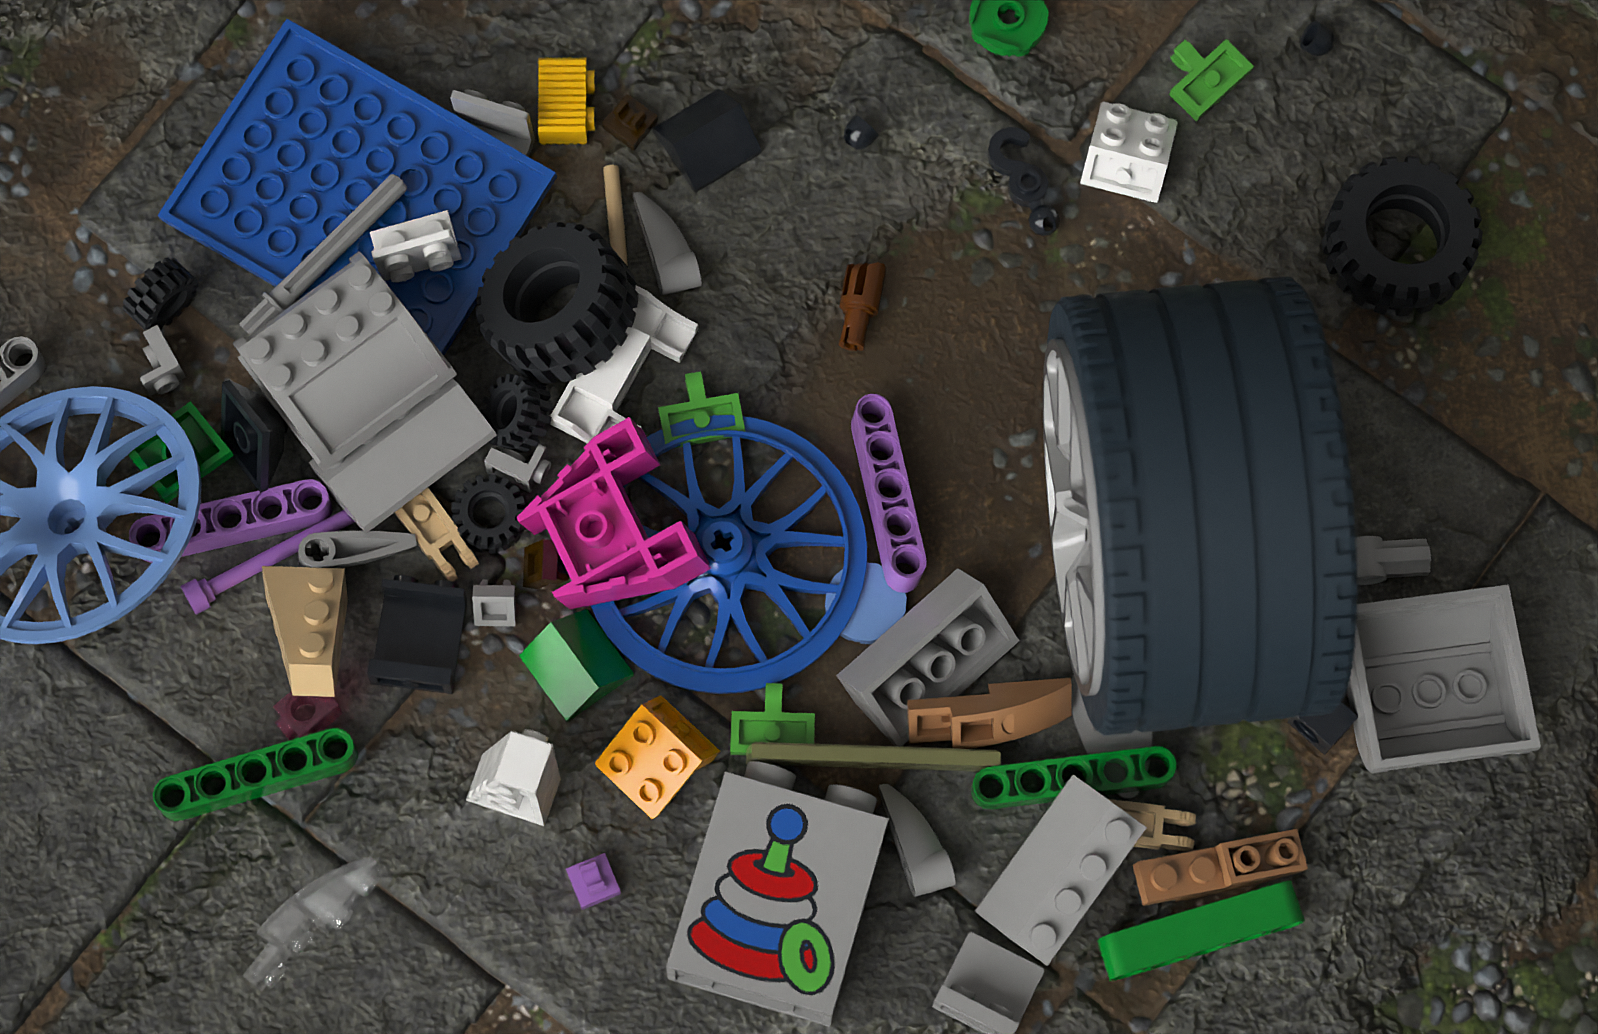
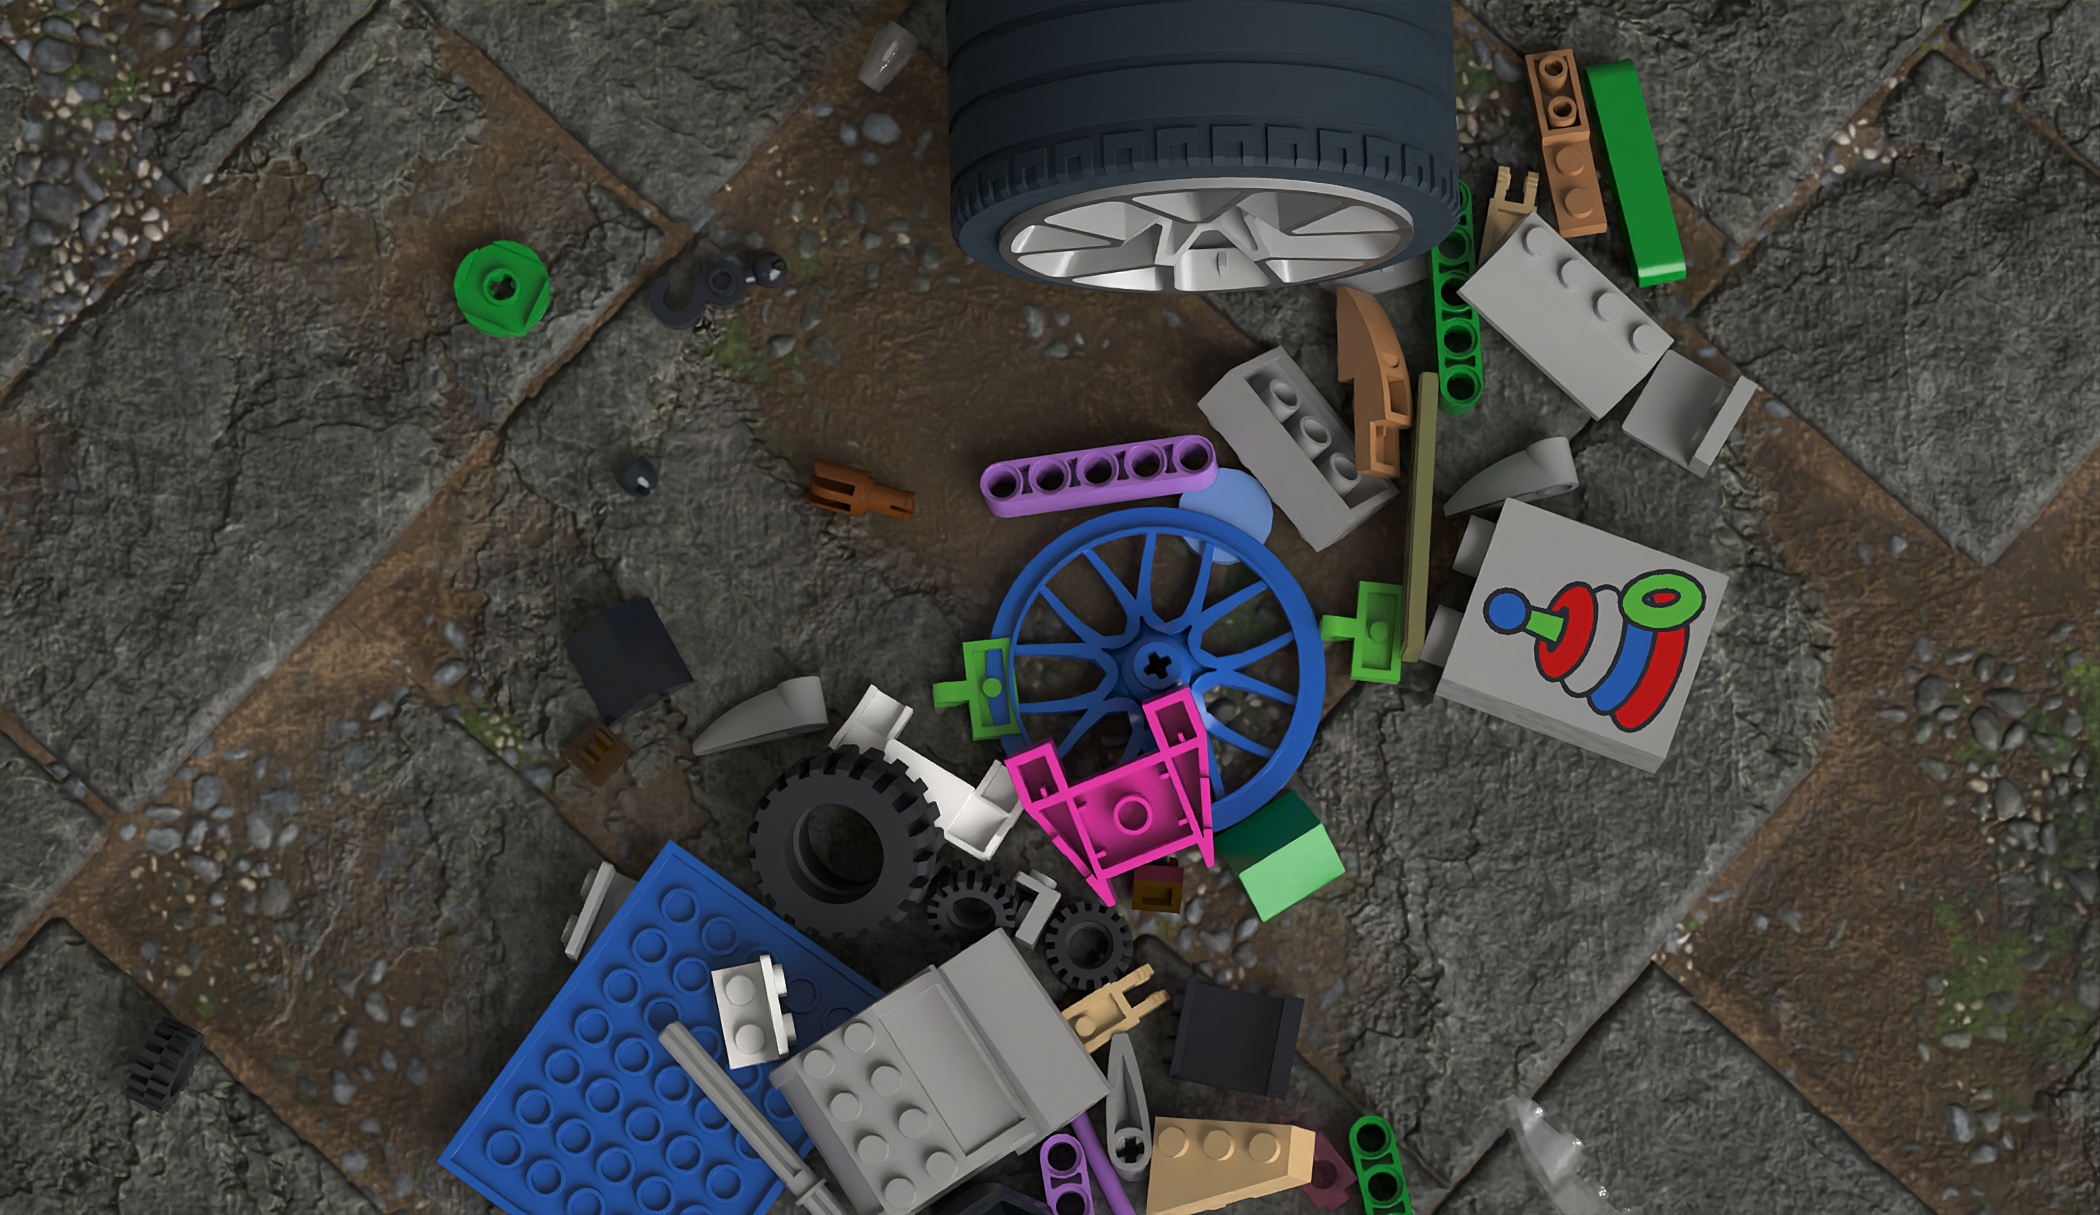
camera: 80 degrees left, 5 degrees up
(494, 604) = (1202, 945): light grey tile -> none
(518, 777) = (1432, 916): white wedge -> none
(563, 101) = (567, 828): yellow brick -> none
(593, 881) = (1538, 850): medium lavender tile -> none
(615, 211) = (717, 777): tan bar -> none
(655, 755) = (1397, 766): light orange bracket -> none
(1129, 151) = (688, 161): white bracket -> none
(1207, 78) = (602, 61): bright green plate -> none

